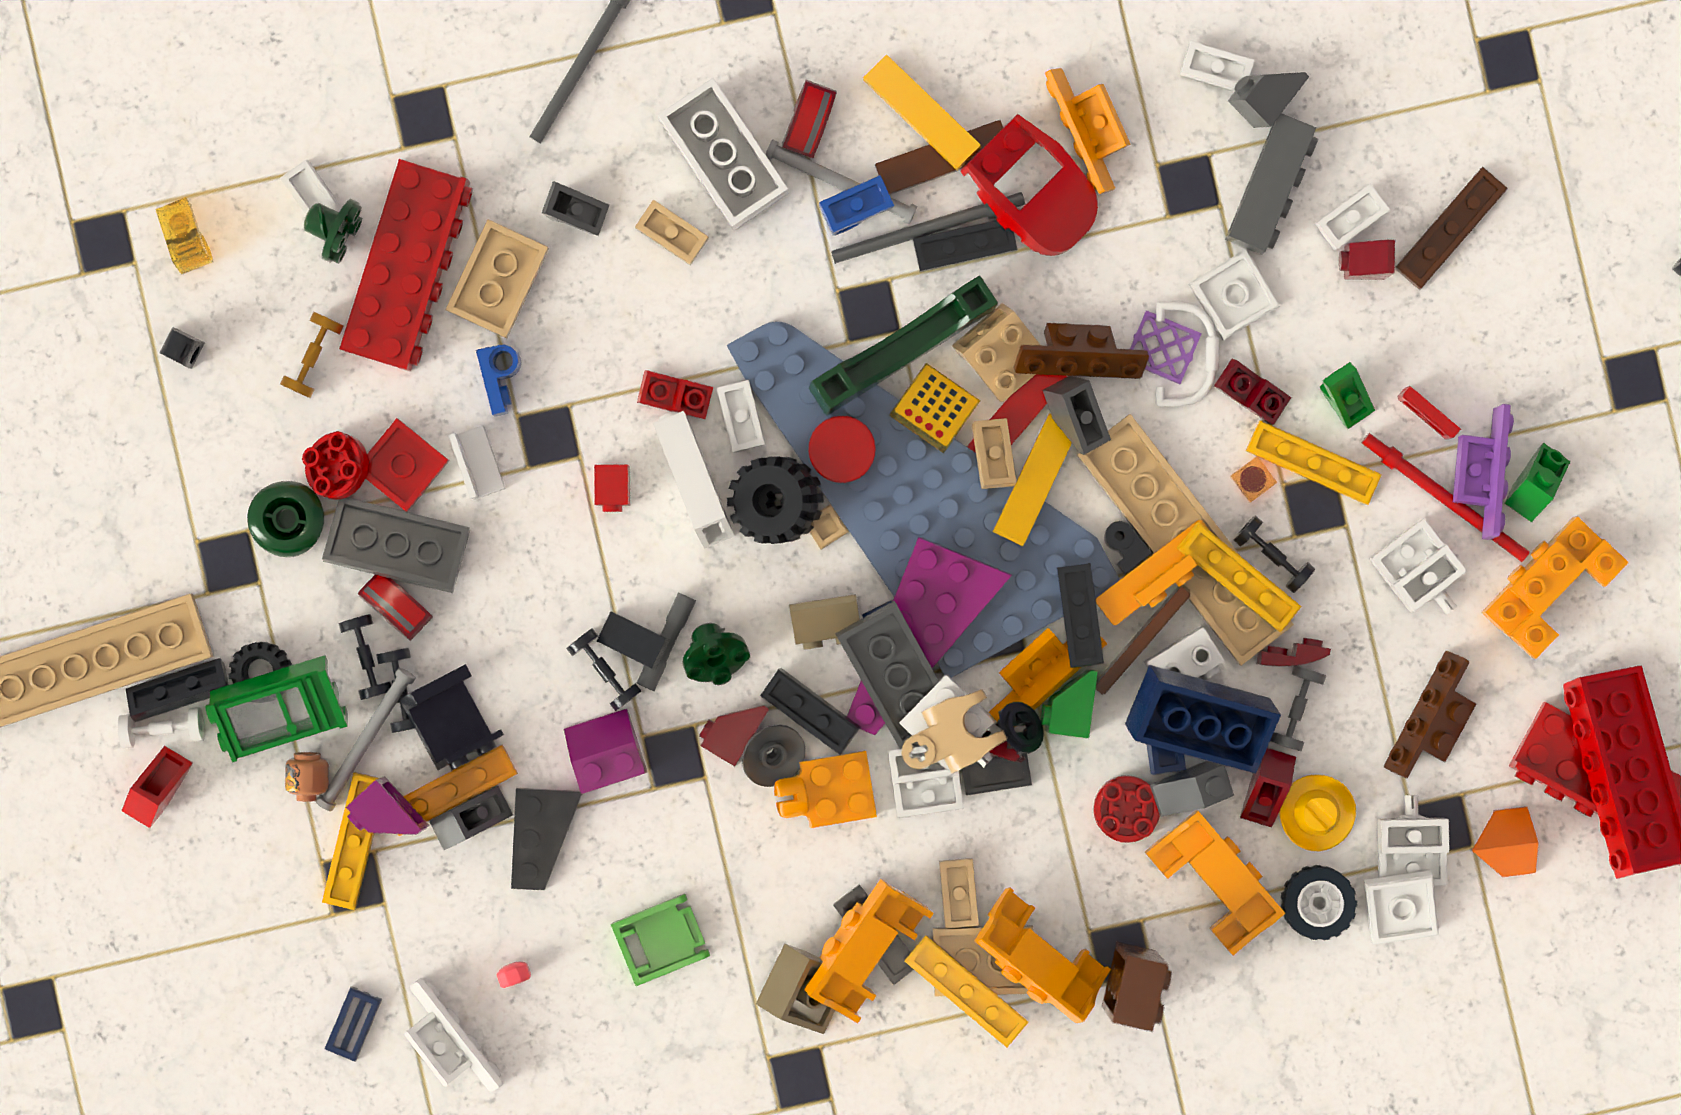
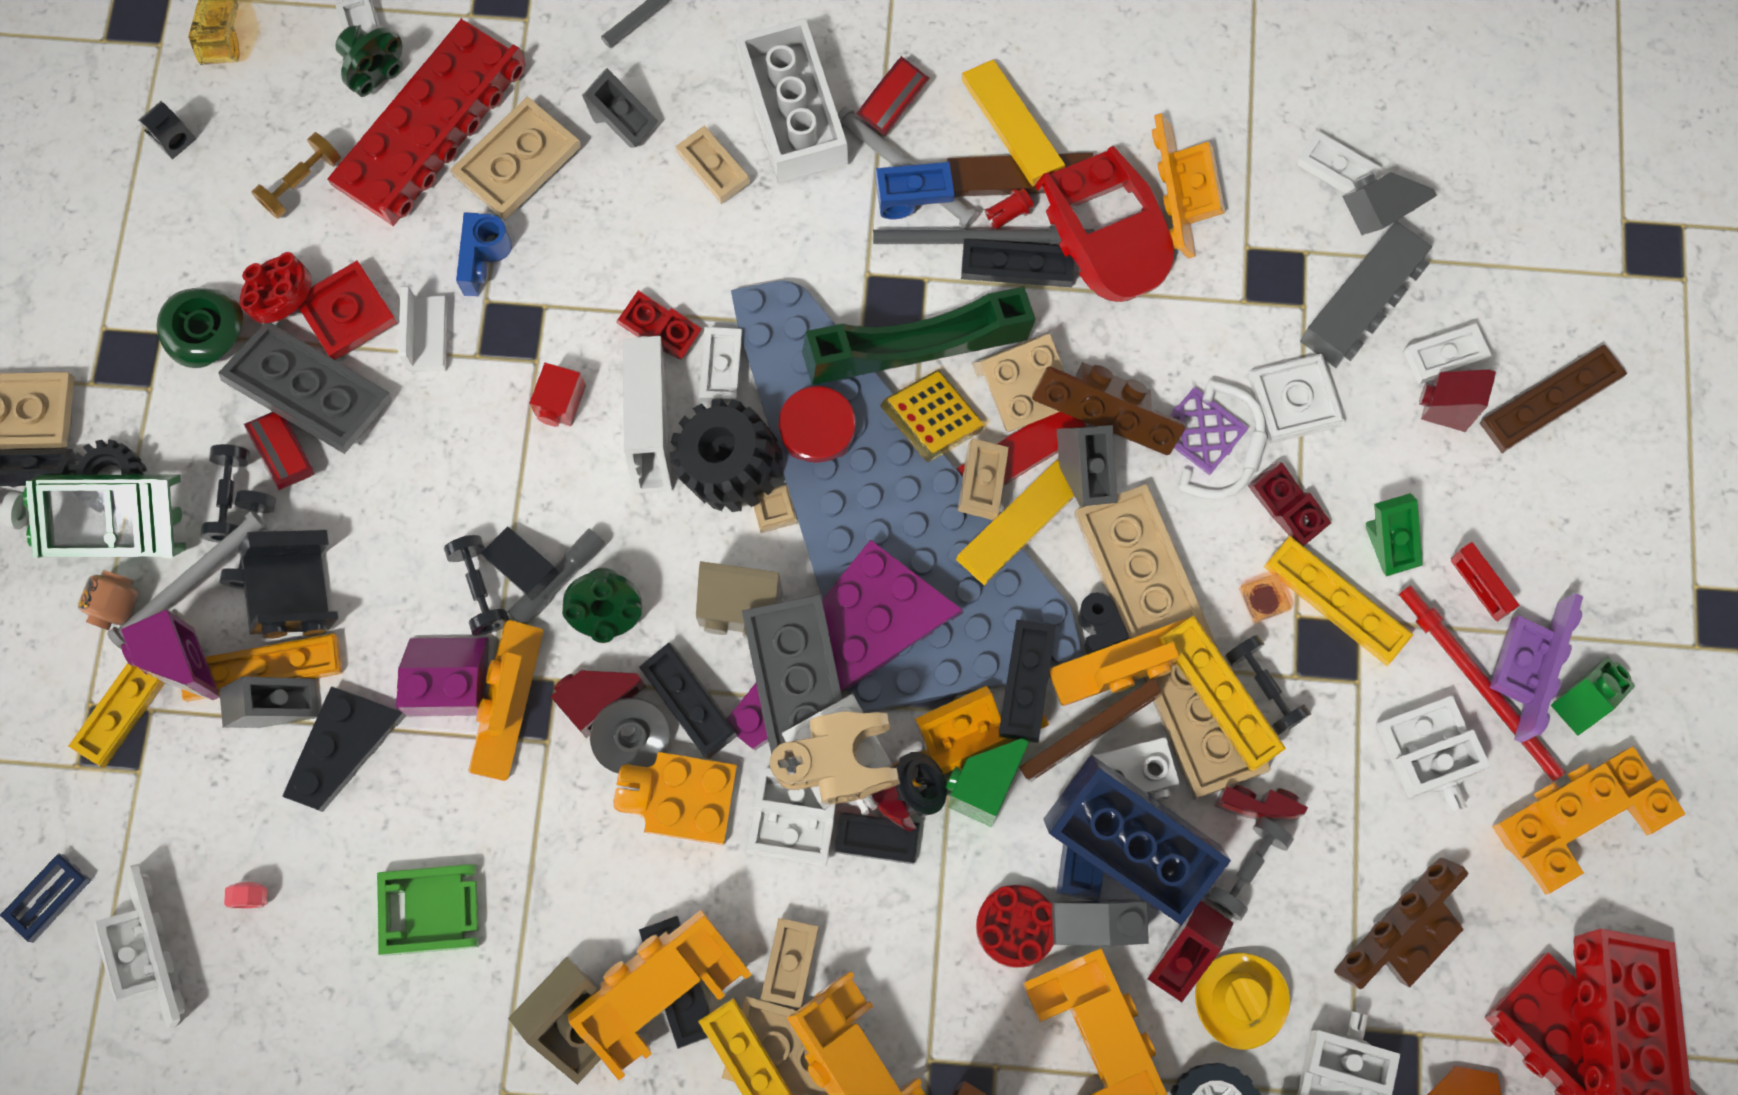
camera: 15 degrees right, 15 degrees down
(662, 756) = (505, 701): none -> light orange bracket
(943, 194) = (1009, 208): none -> red pin

